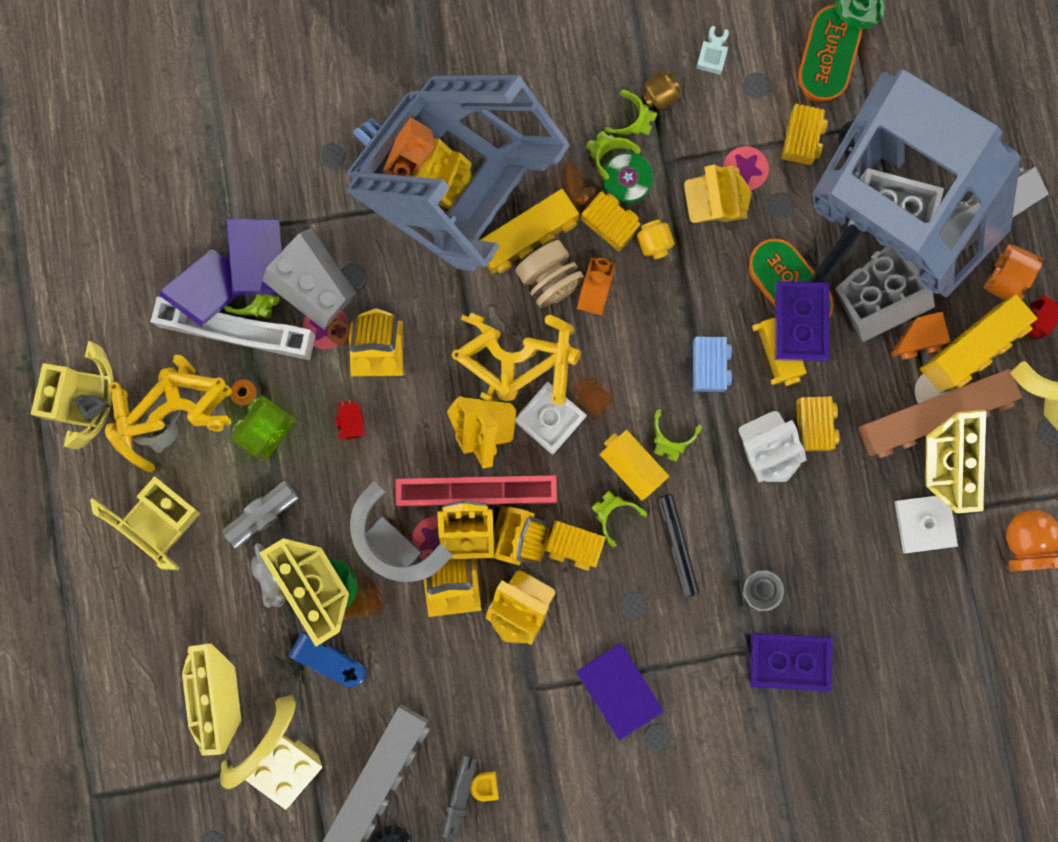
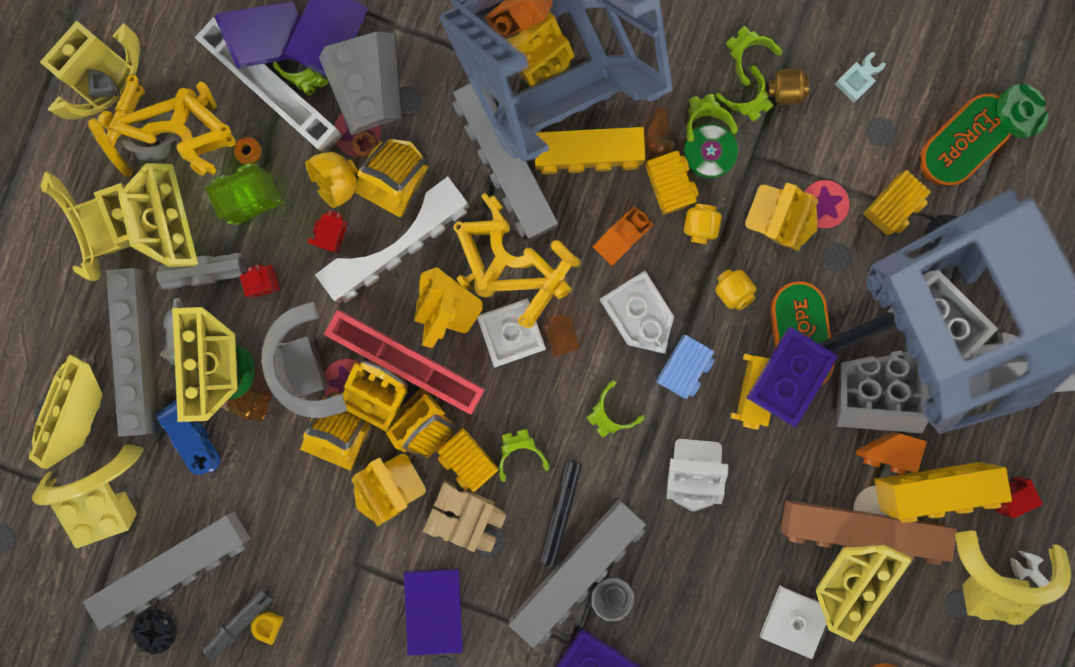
camera: 30 degrees right, 5 degrees up
(201, 486) = (157, 216): none -> light yellow wedge
(239, 615) = (132, 351): none -> light grey brick
(315, 494) = (259, 281): none -> red brick
(329, 372) = (333, 176): none -> yellow cylinder
(386, 447) = (439, 207): none -> white arch
(473, 287) = (509, 174): none -> light grey brick
(547, 269) = (585, 200): tan wheel -> none
(604, 73) = (744, 40): none -> lime helmet
(607, 592) = (470, 518): none -> tan hips
(633, 464) = (562, 419): yellow brick -> none
(647, 342) = (640, 313): none -> white tile
(714, 277) = (735, 289): none -> yellow head
(721, 586) = (576, 573): none -> light grey brick
(816, 423) = (750, 477): yellow brick -> none
(1013, 272) = (1015, 444): orange brick -> none

